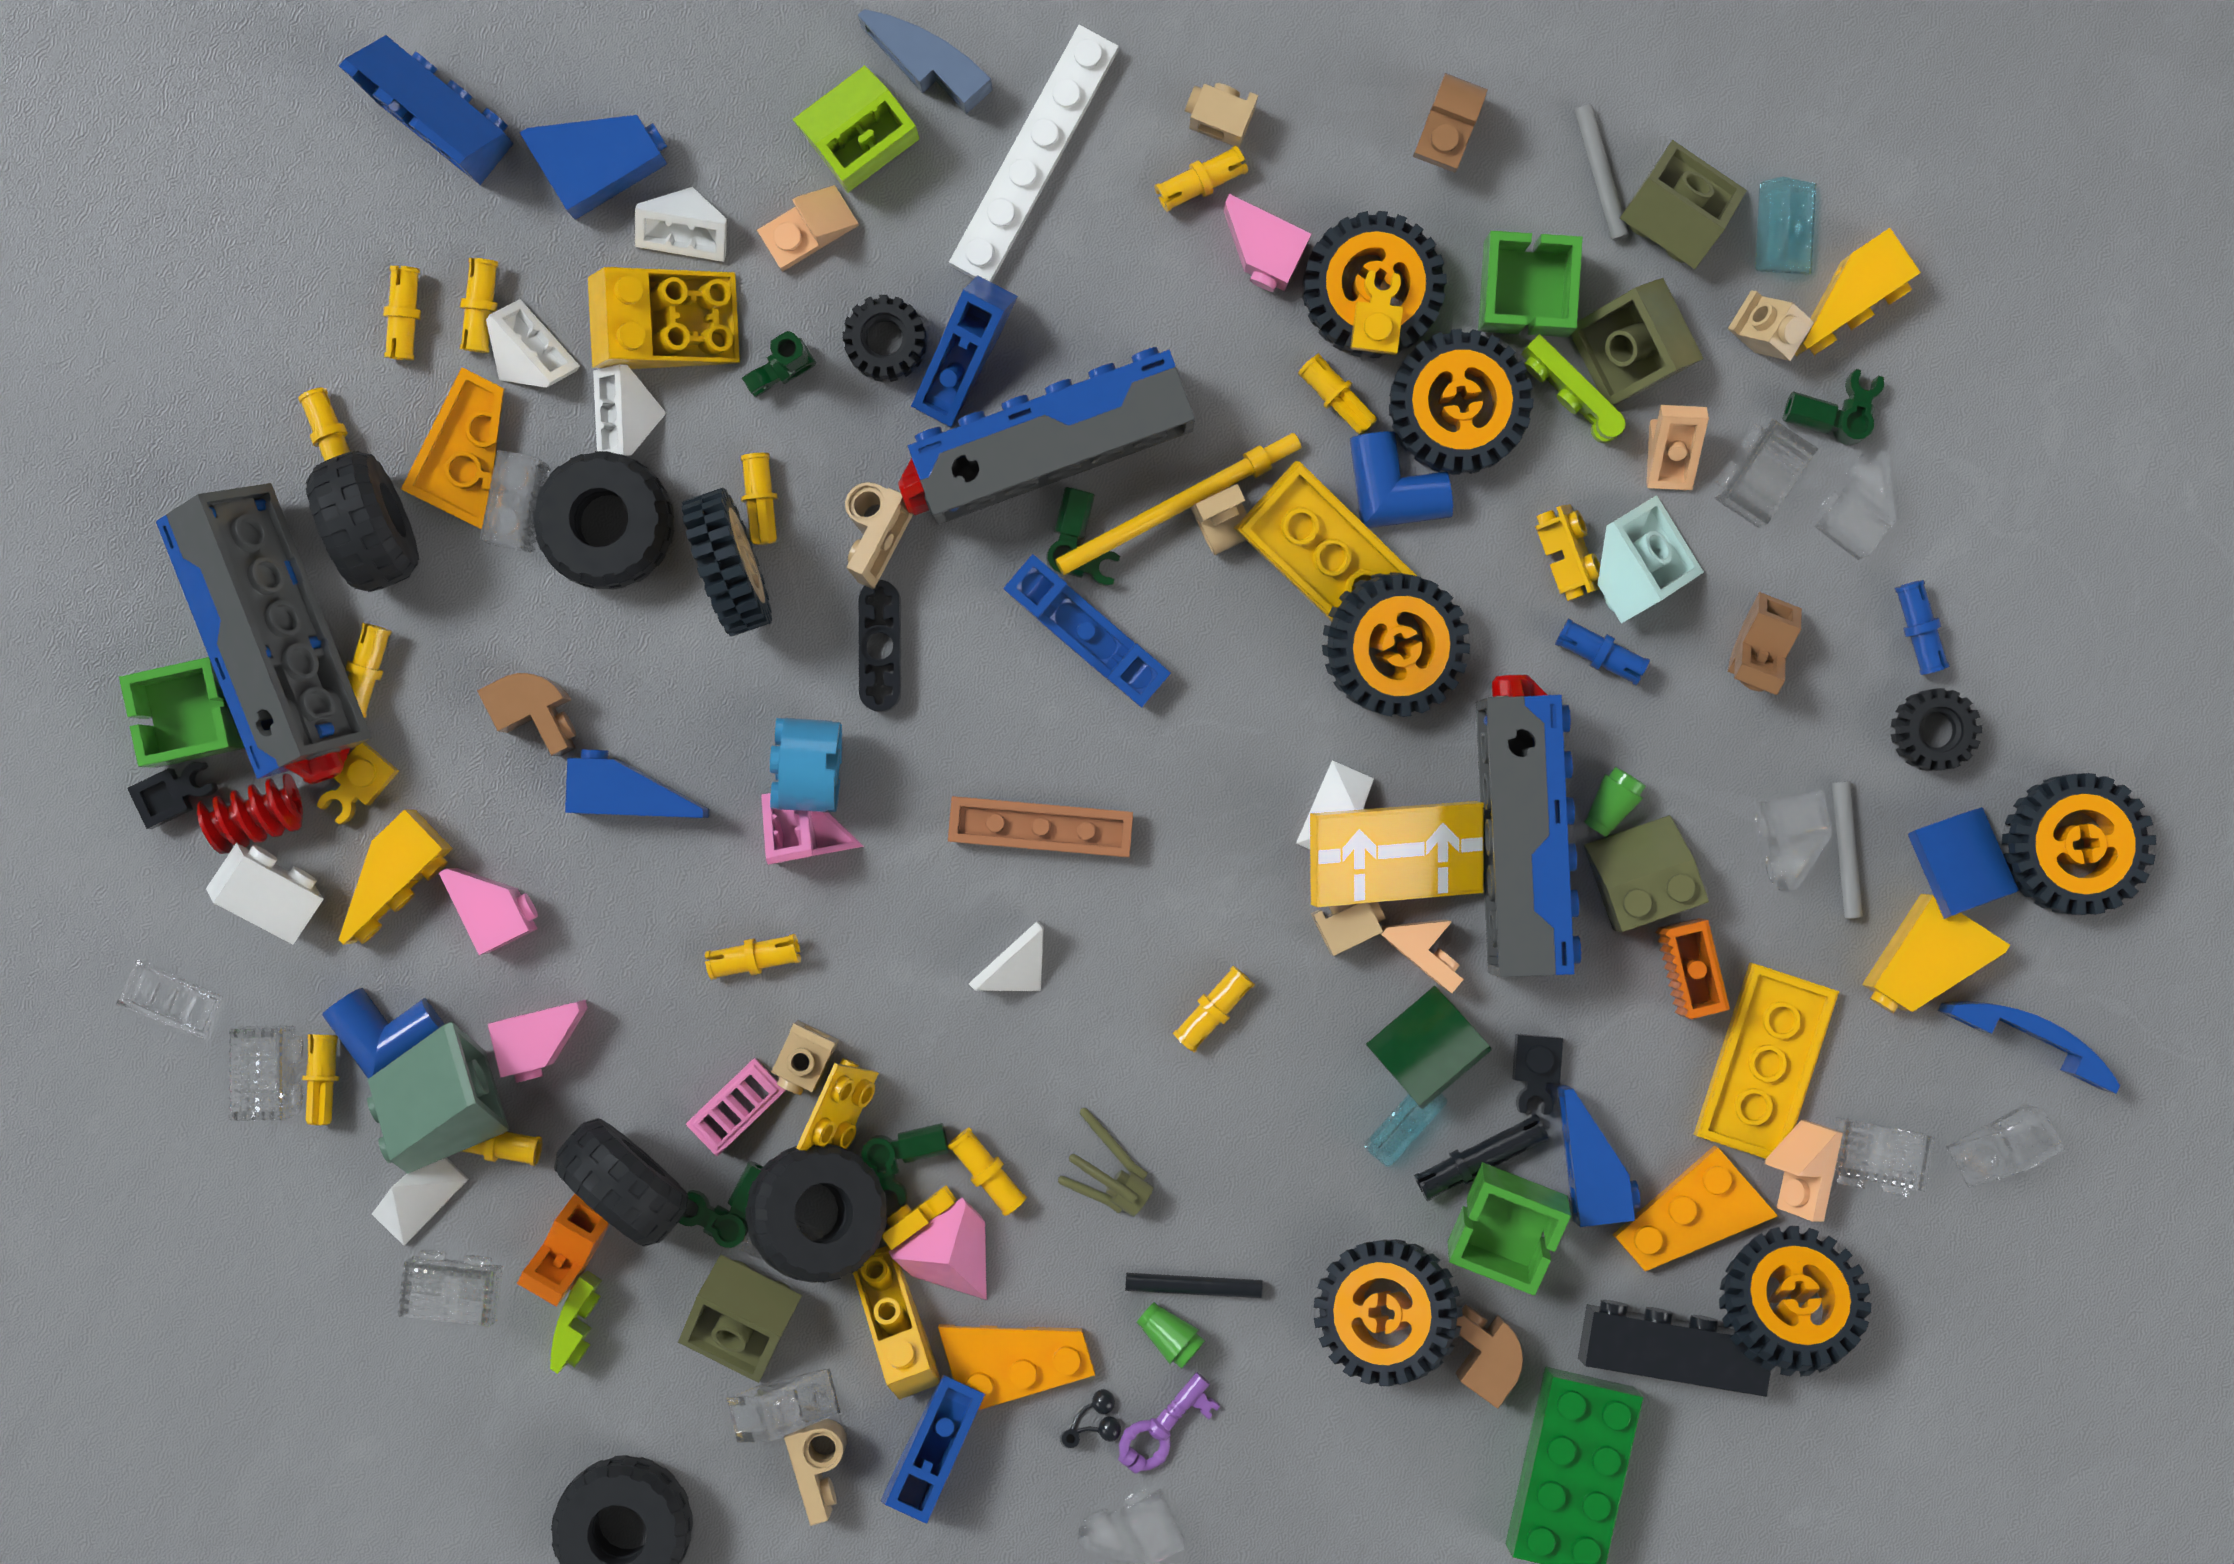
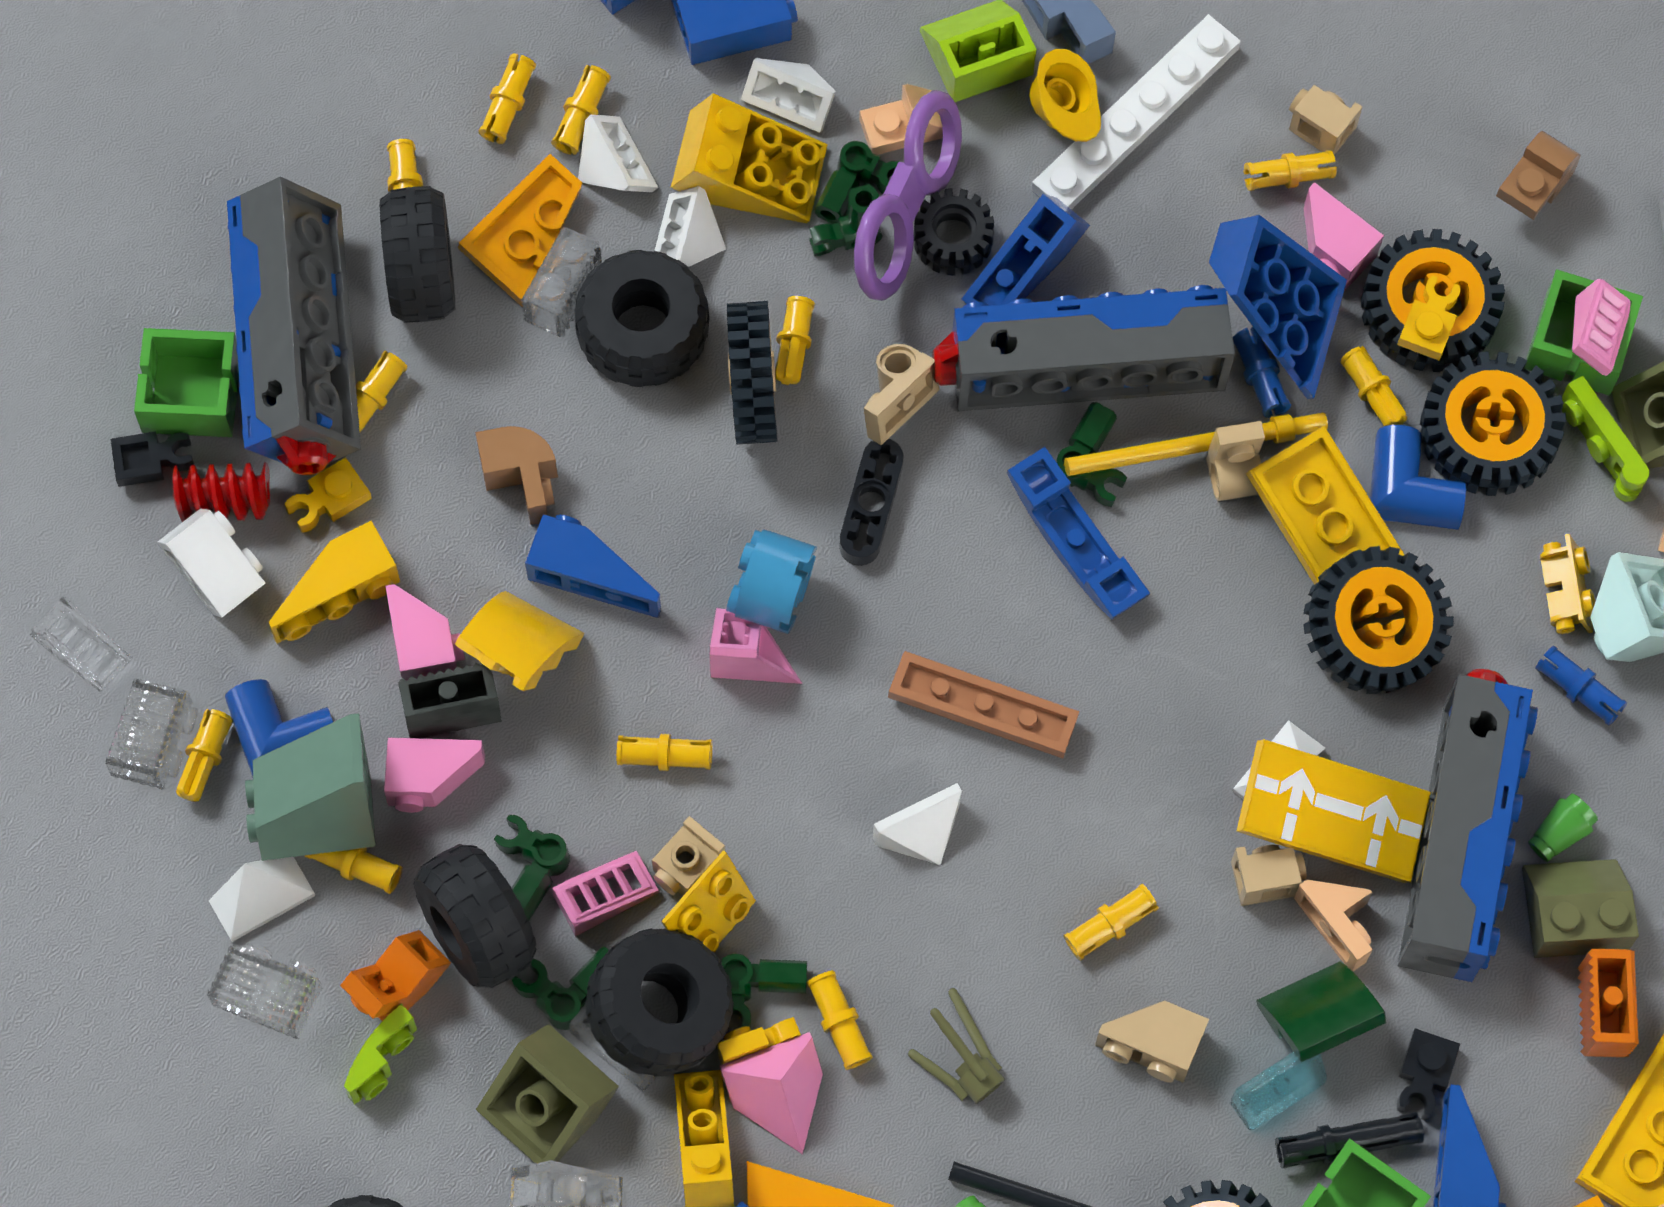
camera: 15 degrees right, 20 degrees down
(535, 969) = (449, 701): none -> pearl dark grey brick
(581, 893) = (517, 639): none -> yellow slope
(672, 1087) = (548, 858): none -> dark green bar
(769, 289) = (854, 165): none -> dark green bar
(827, 322) = (905, 195): none -> medium lavender bar
(960, 163) = (1066, 95): none -> yellow piece
(1223, 338) = (1282, 293): none -> blue wedge
(1223, 407) = (1261, 373): none -> blue pin
(1283, 1110) = (1155, 1037): none -> tan slope
(1555, 260) = (1599, 318): none -> bright pink slope

